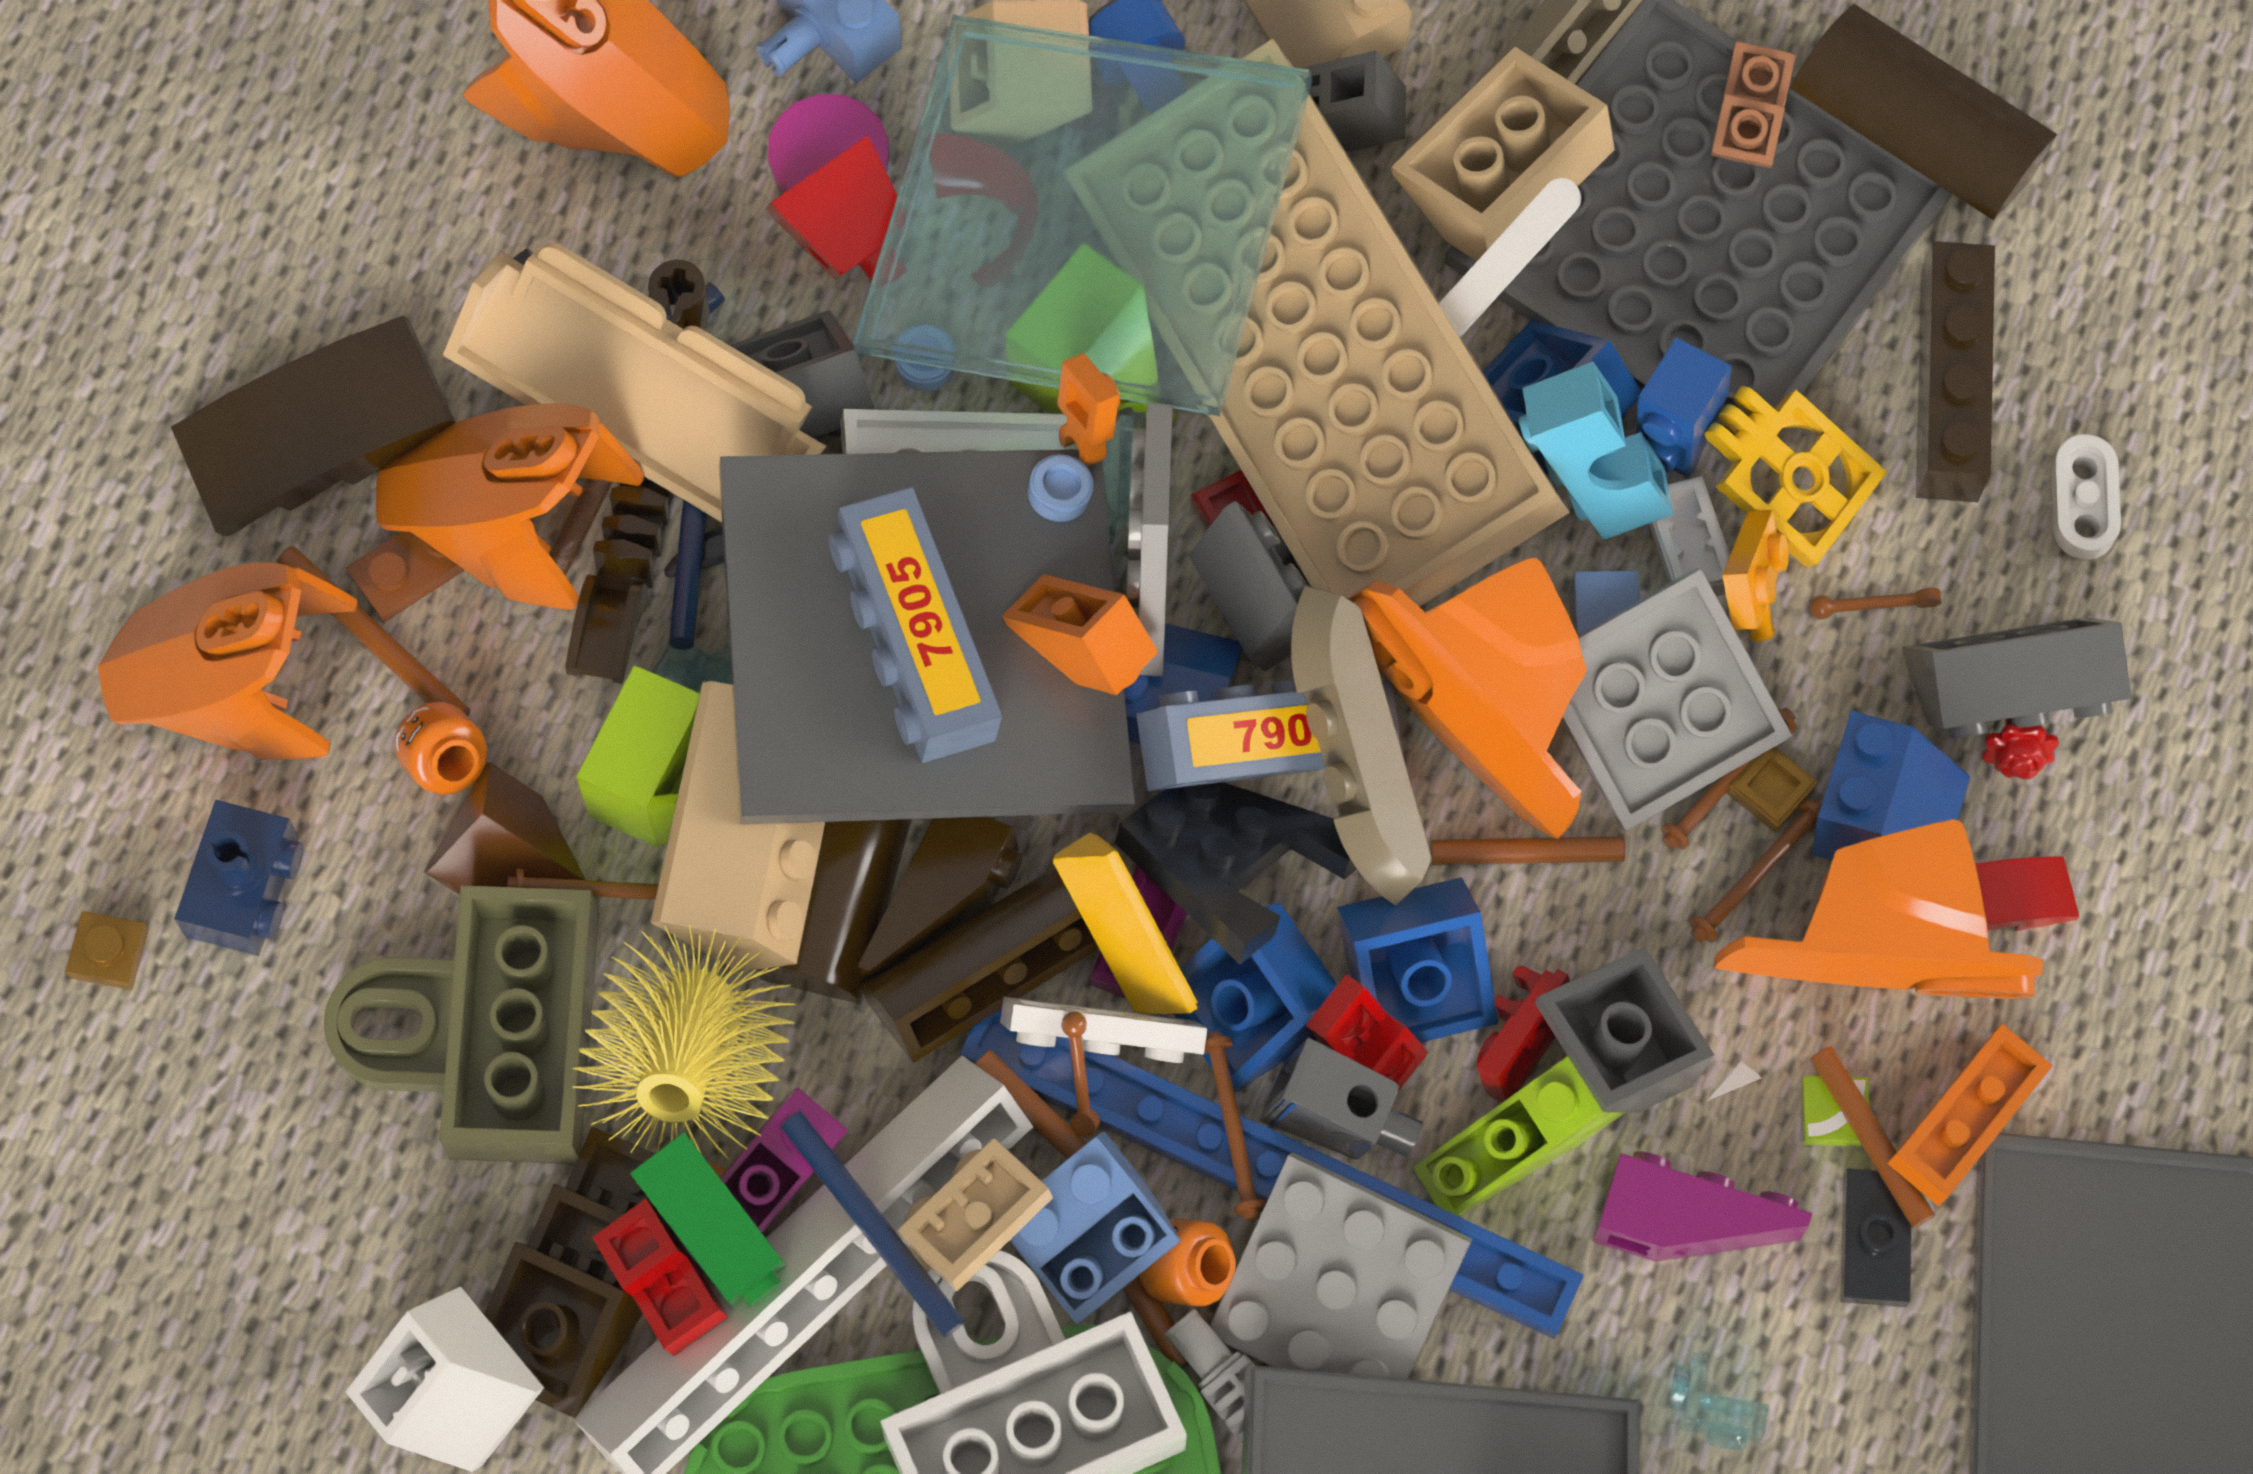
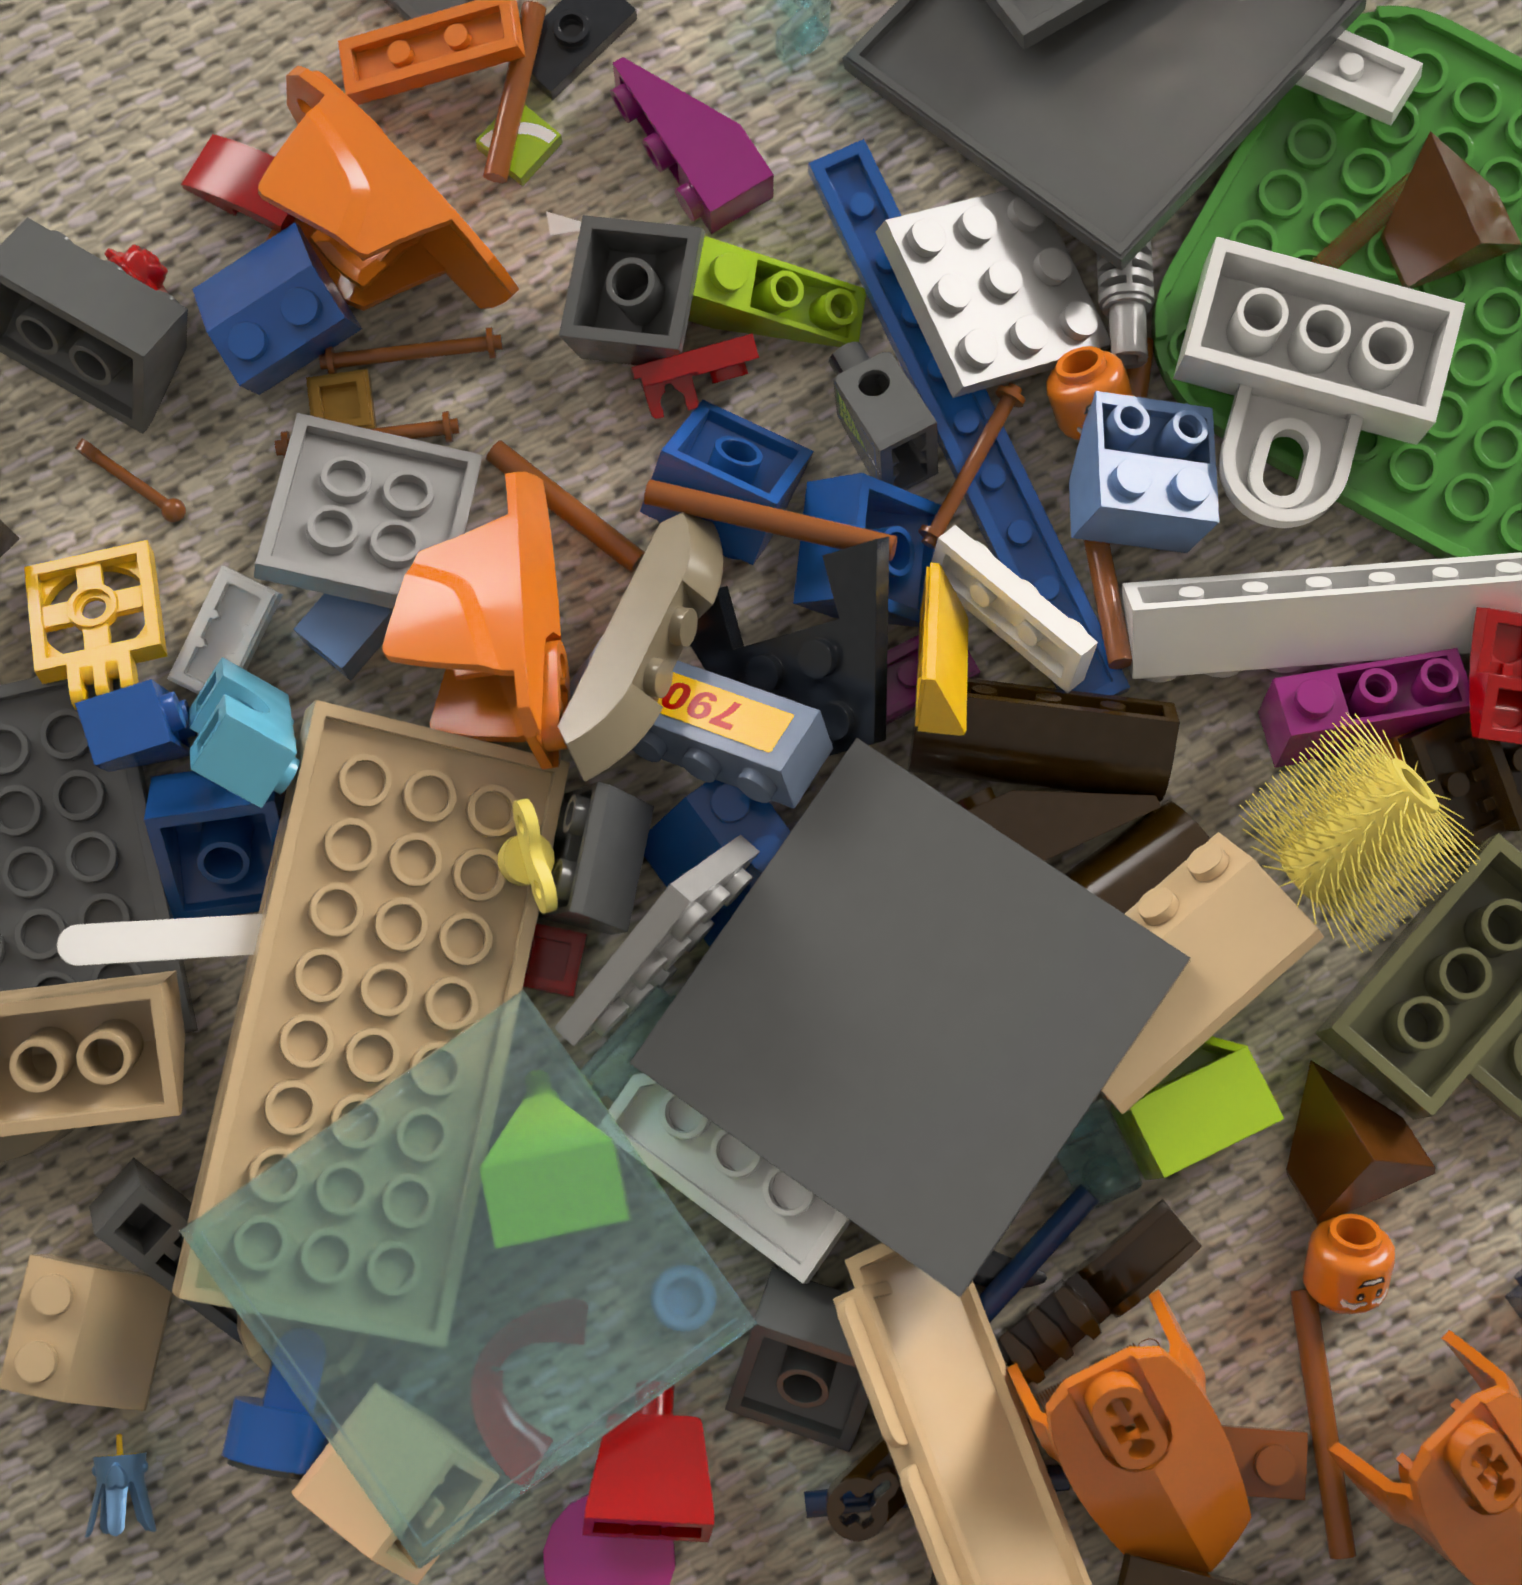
camera: 140 degrees left, 10 degrees up
(599, 888) = (1369, 1093): dark orange axle -> none
(710, 1222) = (1448, 675): green brick -> none
(872, 1224) = (1321, 581): dark blue bar -> none
(915, 625) = (921, 1006): sand blue brick -> none
(973, 1213) = (1238, 522): tan bracket -> none
(1060, 488) = (695, 1048): light blue tile -> none
(1083, 632) = (789, 900): orange slope -> none
(1085, 1119) = (1048, 603): dark orange hinge -> none
(1090, 407) = (623, 1082): orange plate -> none
(1301, 527) = (529, 857): none -> light yellow piece
(1350, 924) = (760, 517): none -> dark orange bar
(1363, 1031) = (820, 444): red slope -> none
(1753, 573) = (219, 539): light orange plate -> none

